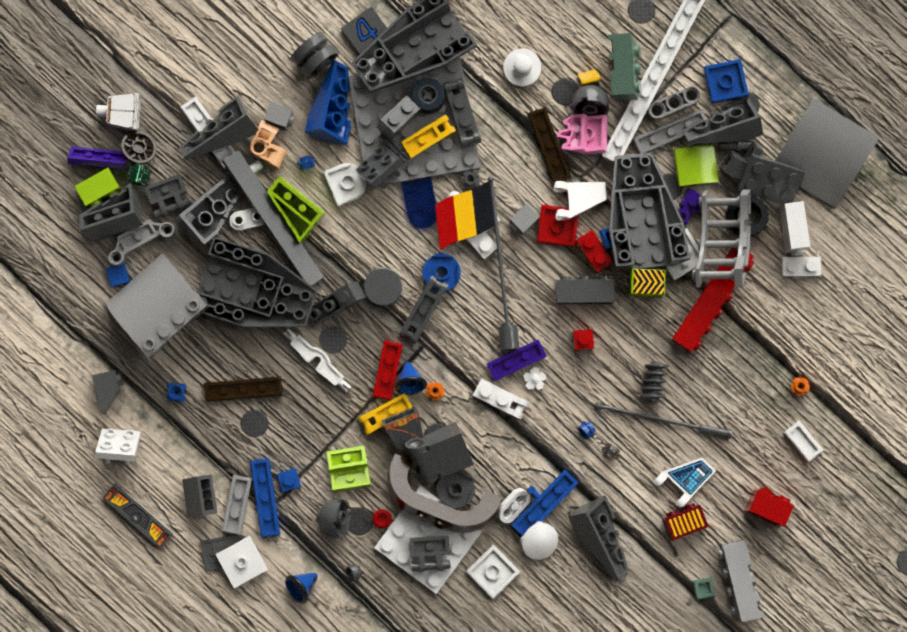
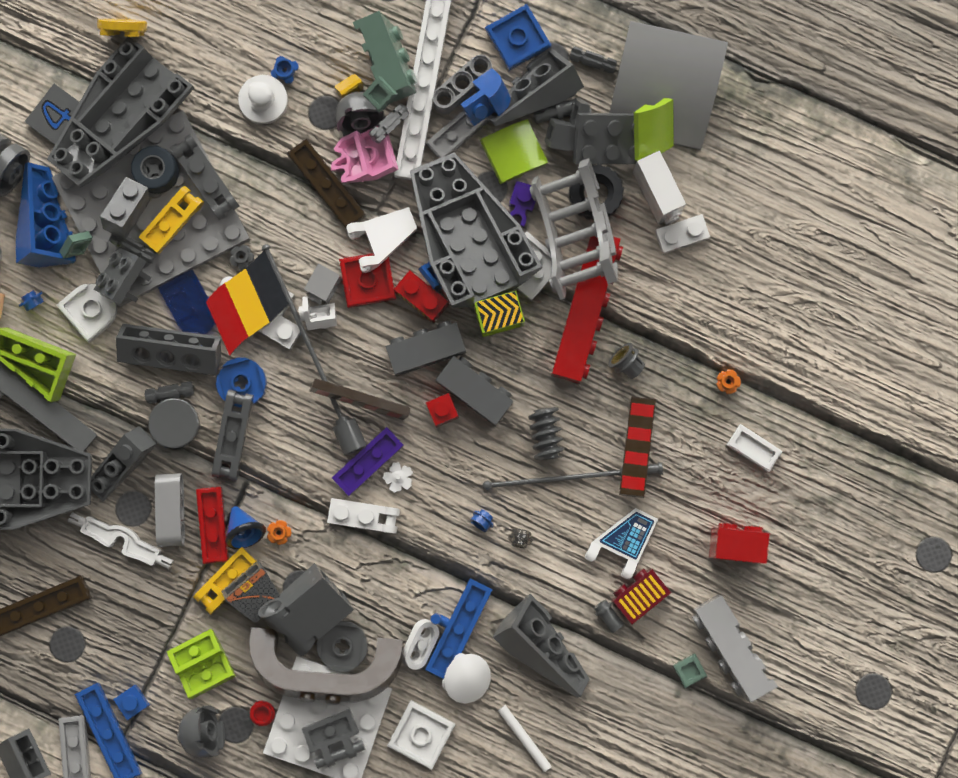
camera: 10 degrees left, 0 degrees up
(352, 132) = (76, 244): none -> sand green tile
(360, 349) = (169, 510): none -> light grey beam
(385, 226) = (168, 349): none -> dark grey brick
(386, 262) = (169, 392): none -> dark grey axle
(513, 242) = (318, 316): none -> white bracket
(525, 312) = (359, 399): none -> dark brown tile
(545, 55) = (281, 63): none -> blue plate
(567, 598) = (524, 738): none -> white bar
(610, 116) = (389, 123): none -> axle
(611, 93) = (380, 94): none -> sand green tile
(611, 333) = (475, 390): none -> dark grey brick
(657, 529) = (608, 615): none -> dark grey pin
(691, 121) = (490, 97): none -> blue brick
(717, 413) = (637, 447): none -> tile
(730, 347) = (627, 361): none -> dark grey piece
(776, 116) = (593, 59): none -> dark grey axle
(804, 183) = (653, 128): none -> lime slope

